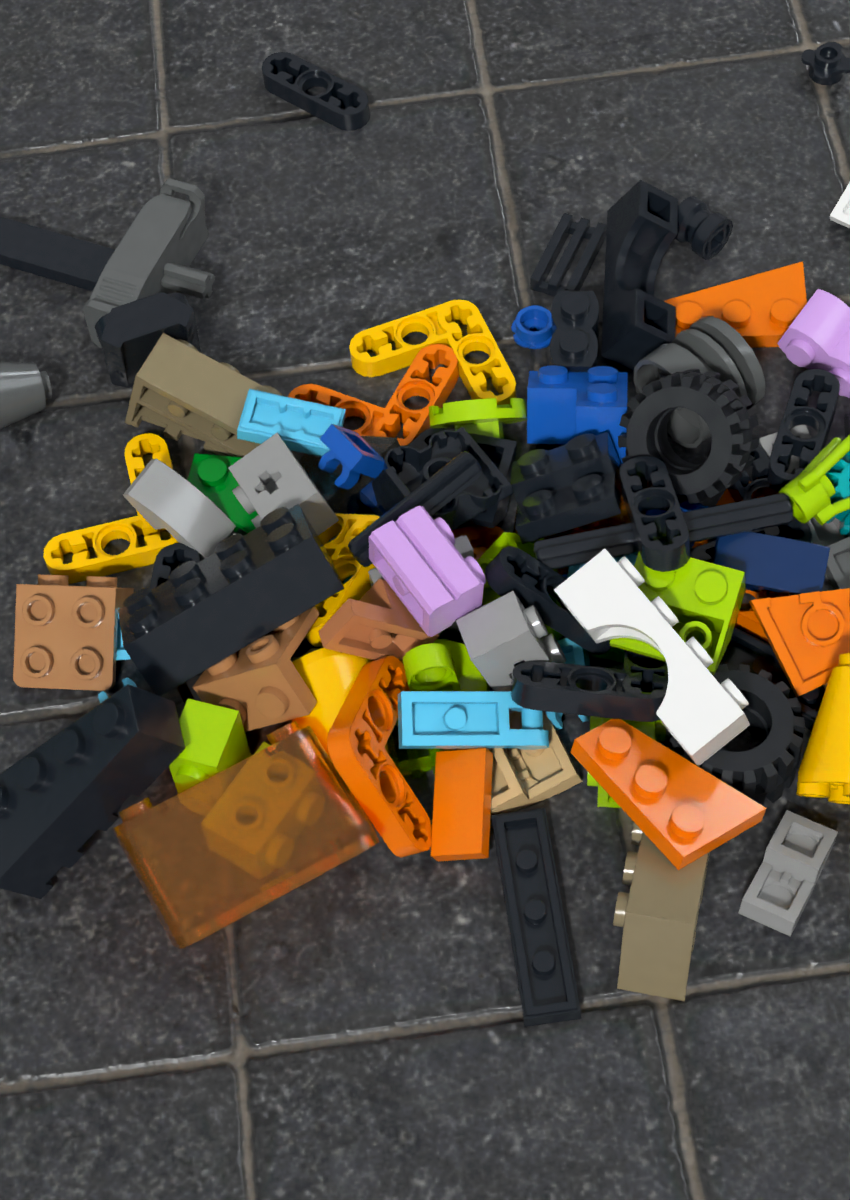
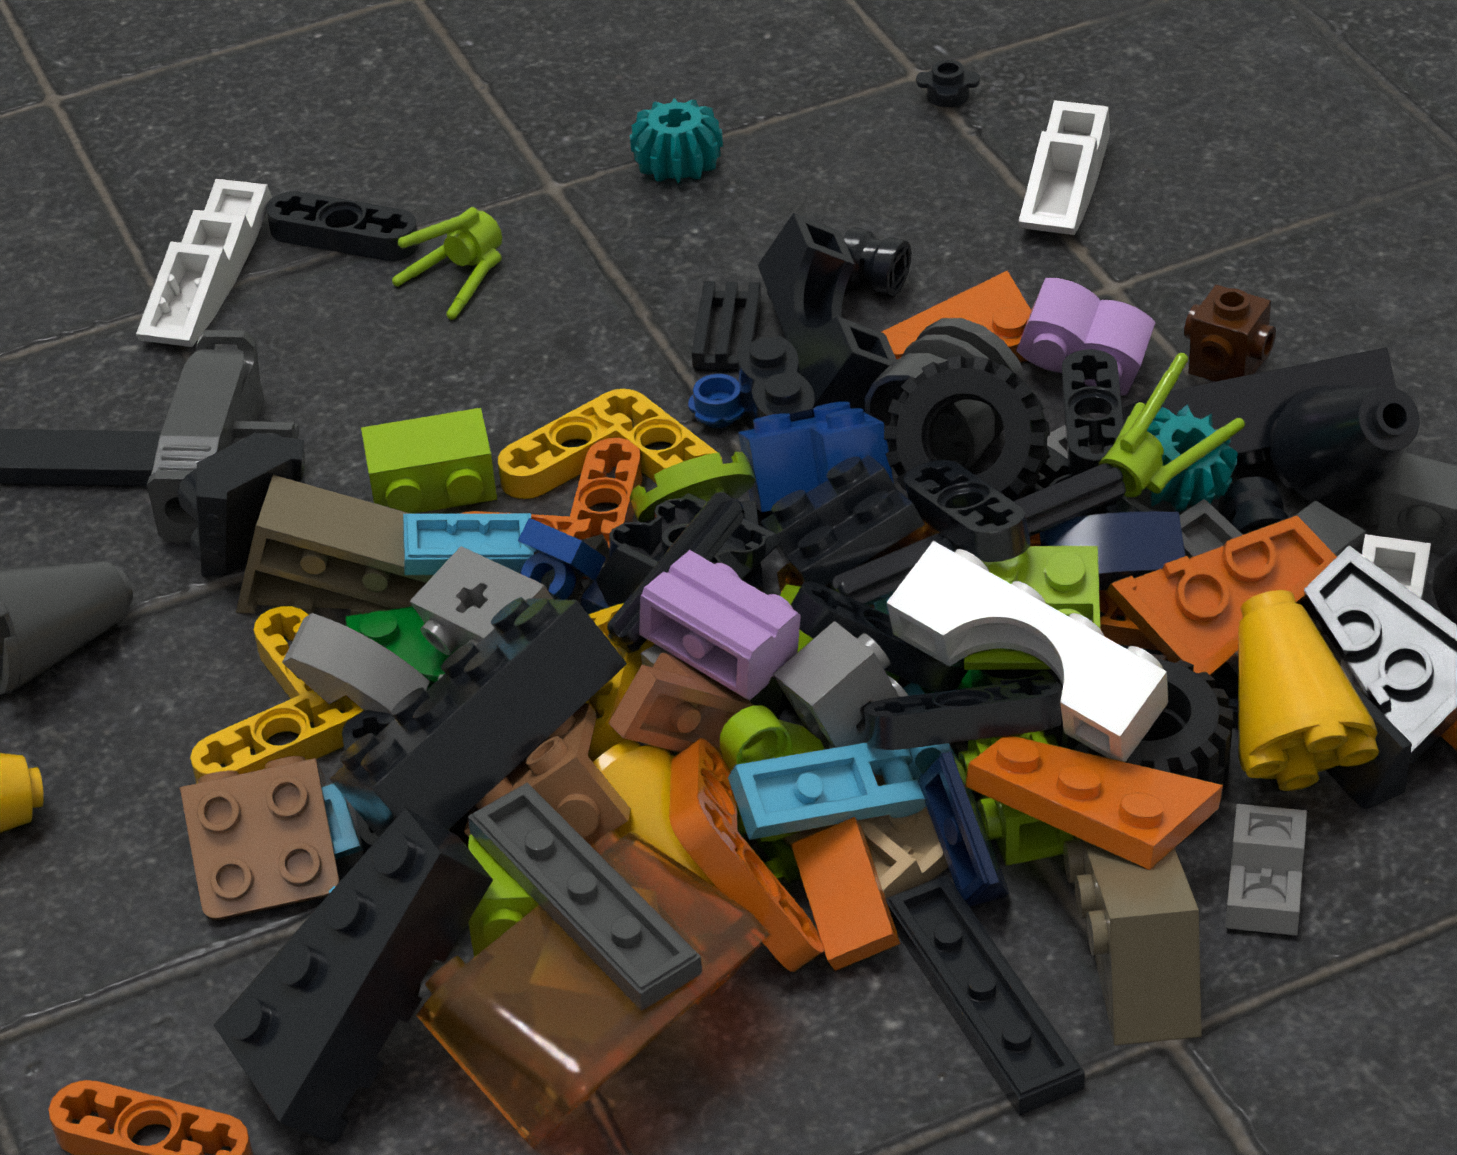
camera: 20 degrees left, 15 degrees down
(202, 107) = (205, 264): none -> white slope
(246, 780) = (585, 896): none -> dark grey tile
(299, 332) = (430, 462): none -> lime brick
(399, 130) = (469, 241): none -> lime plant
(565, 783) = (962, 832): none -> dark blue slope
(590, 72) = (676, 140): none -> teal gear

